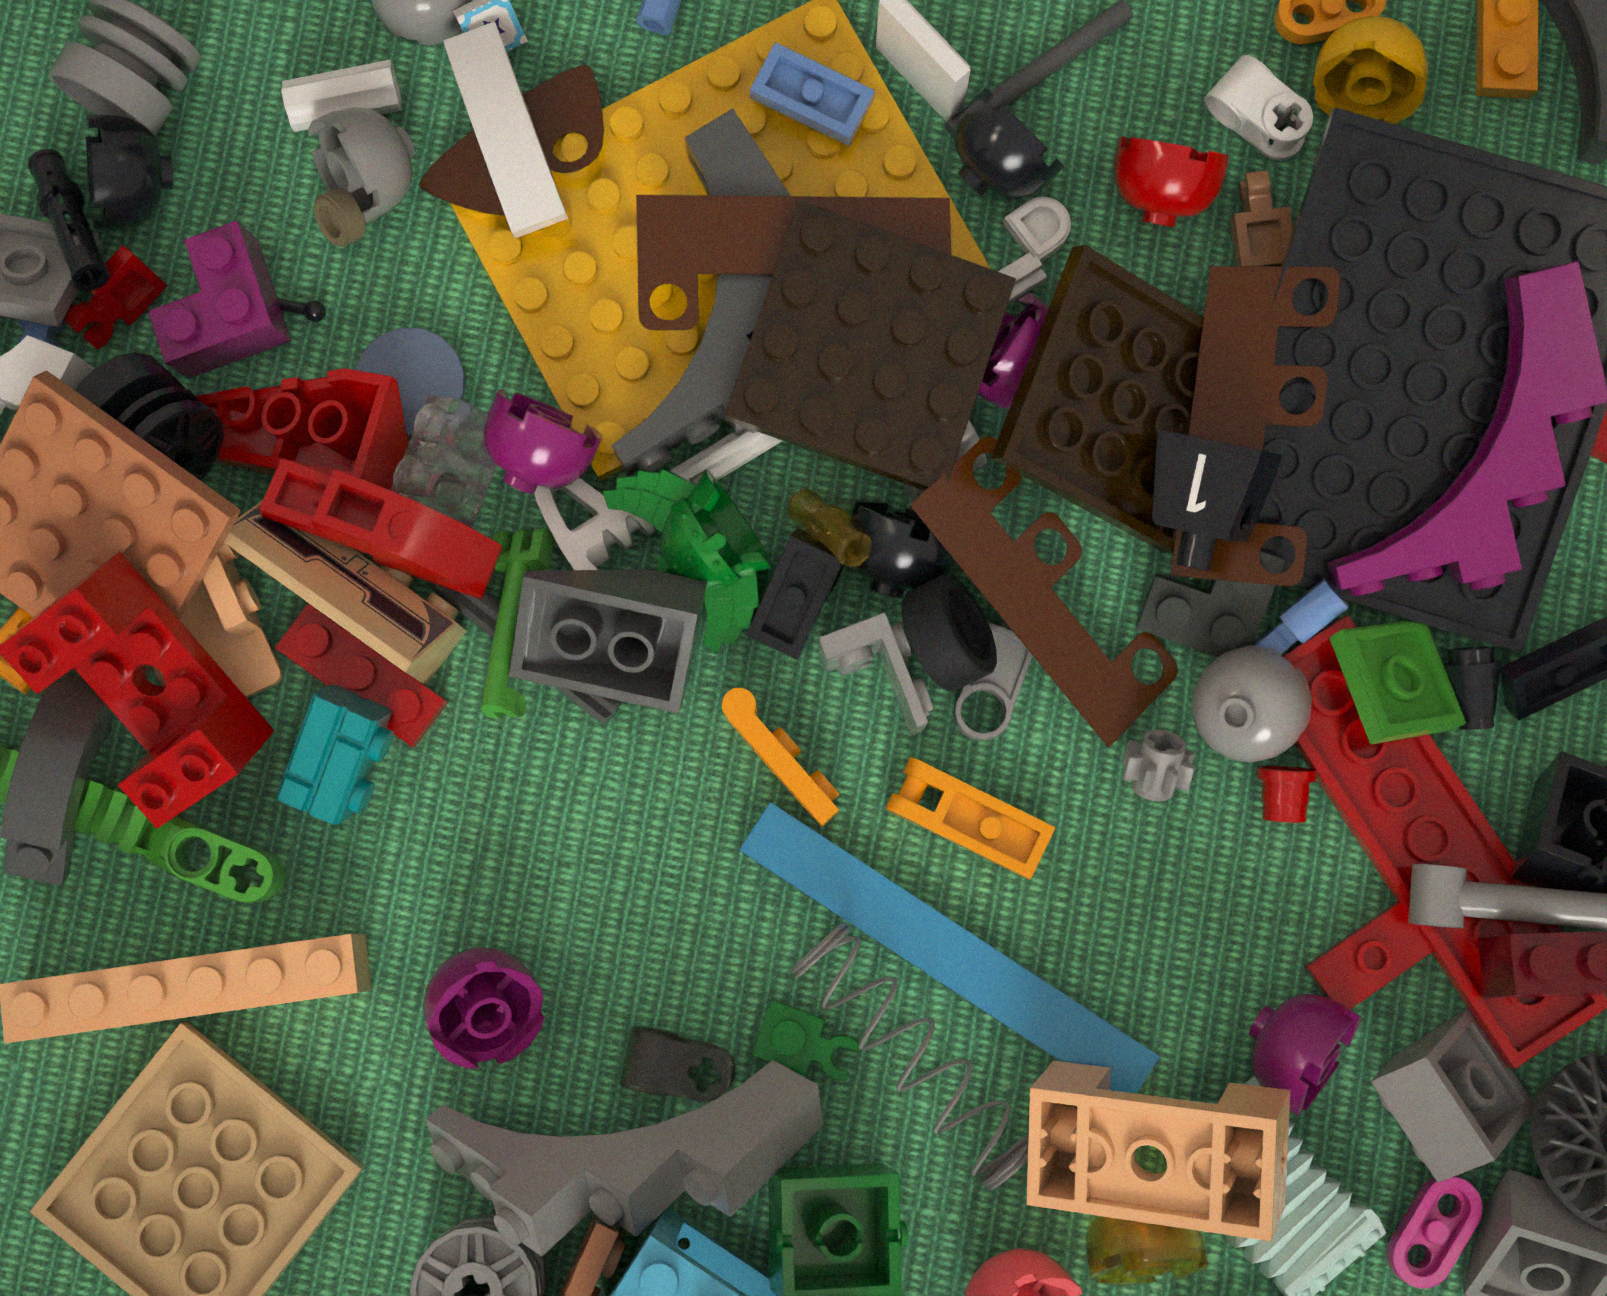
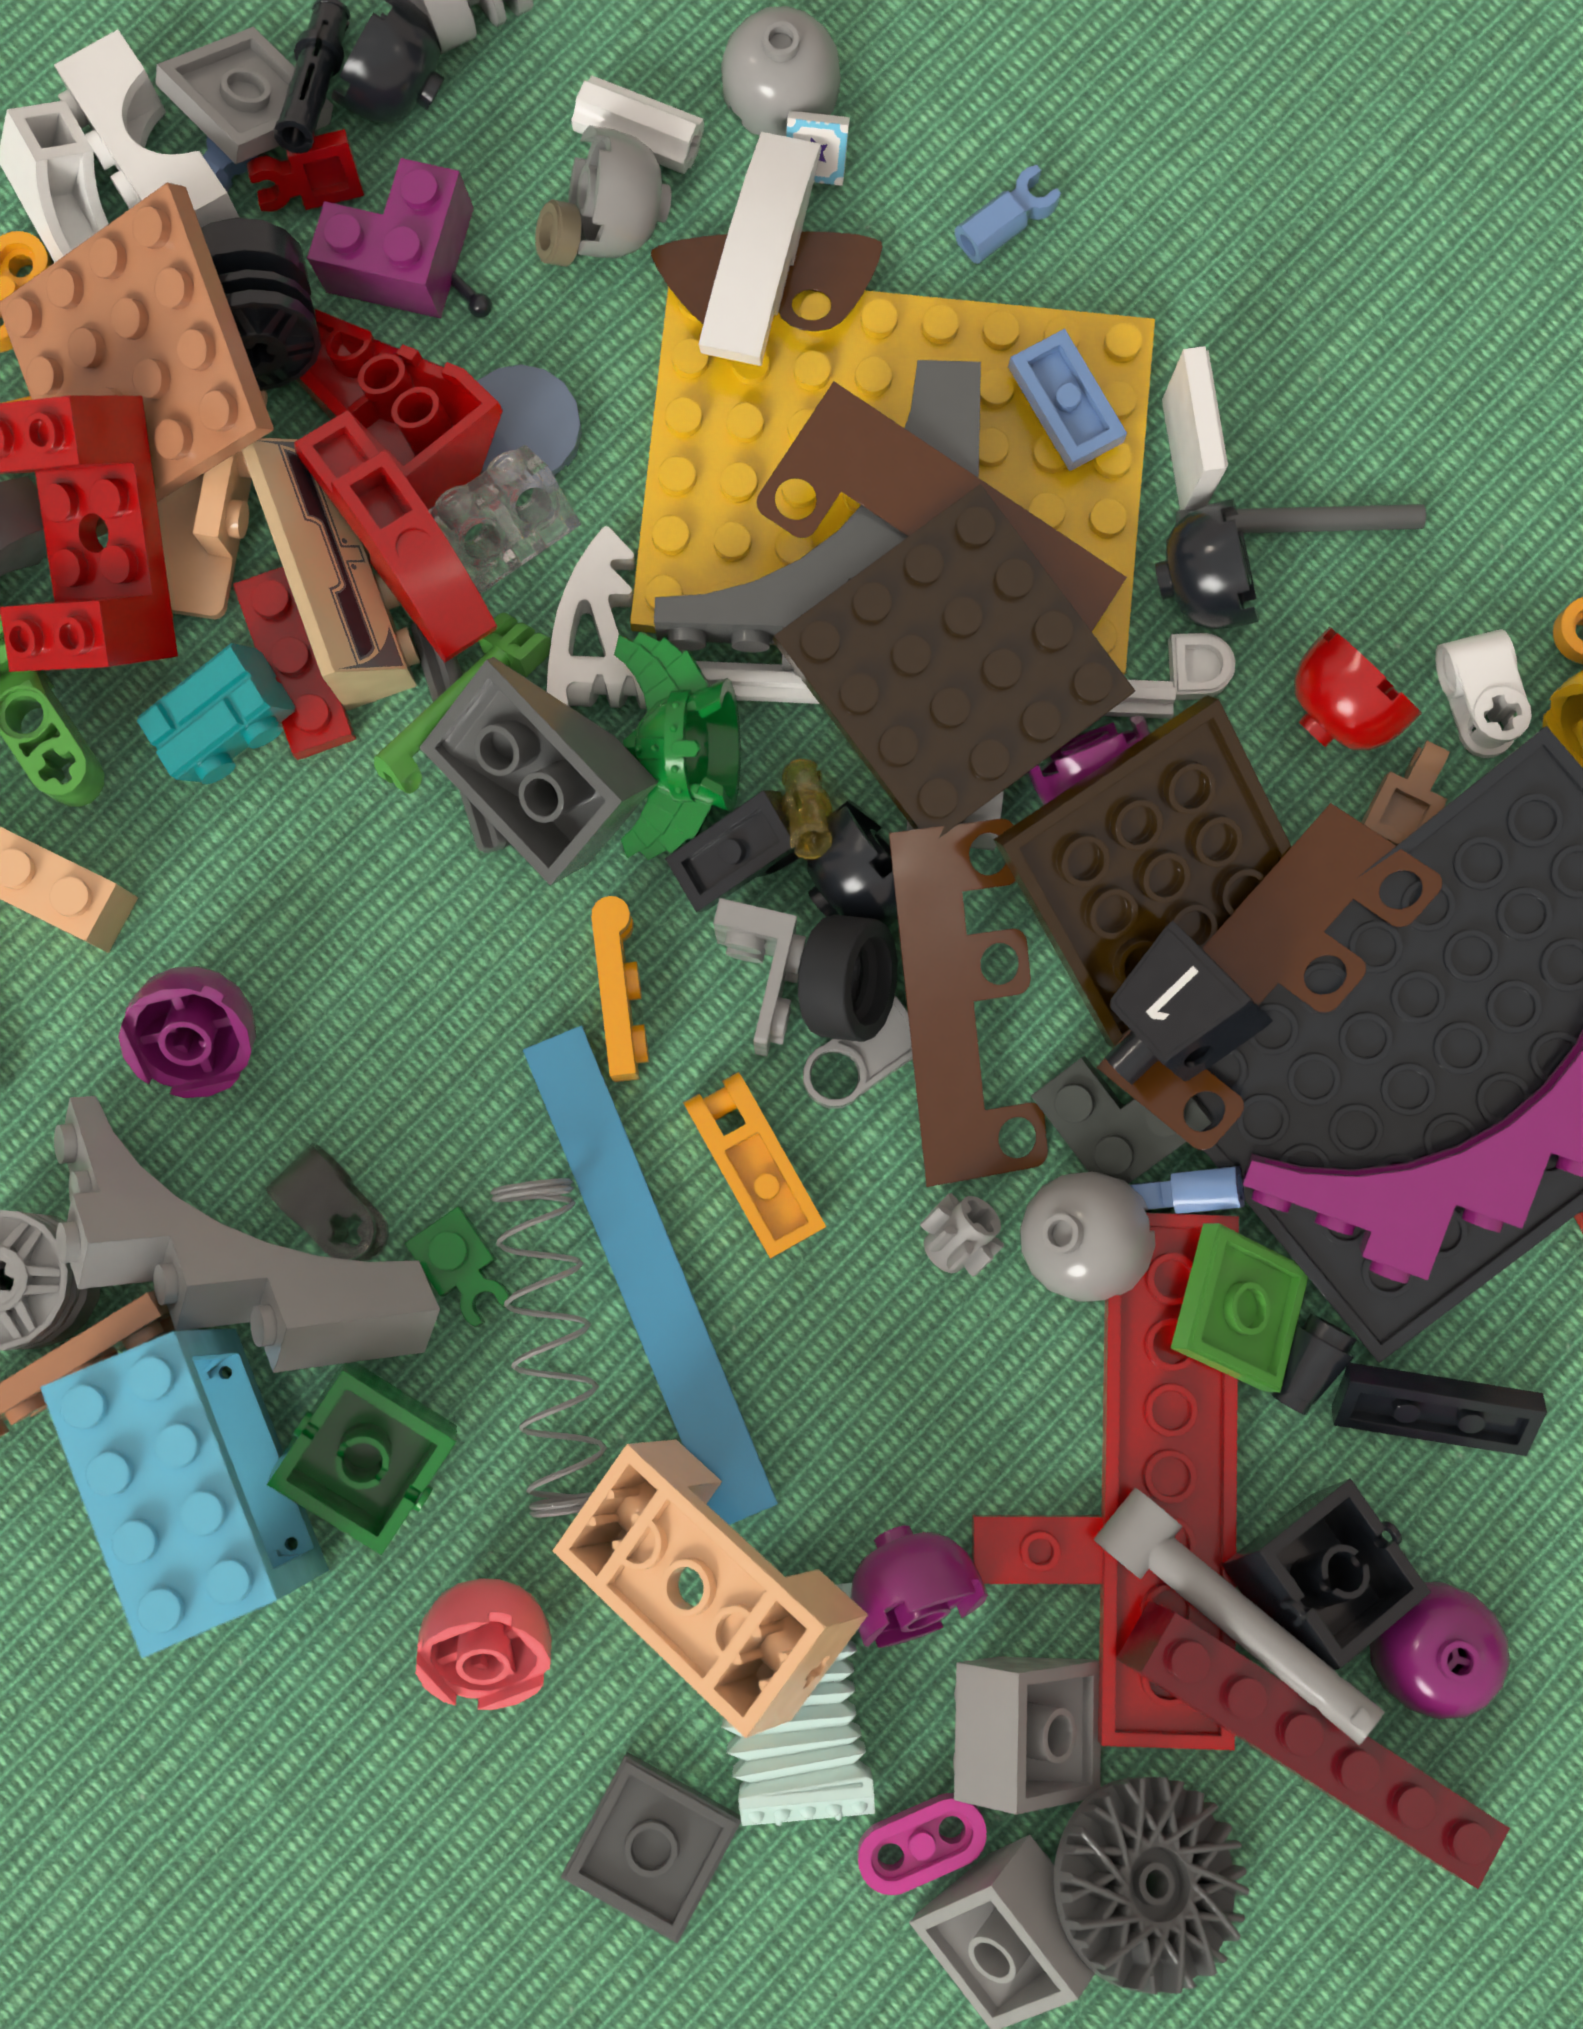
camera: 30 degrees right, 0 degrees up
(536, 443) = (590, 551): magenta cylinder -> none
(1138, 1251) = (631, 1671): clear yellow cylinder -> none
(1285, 792) = (1064, 1341): red piece -> none

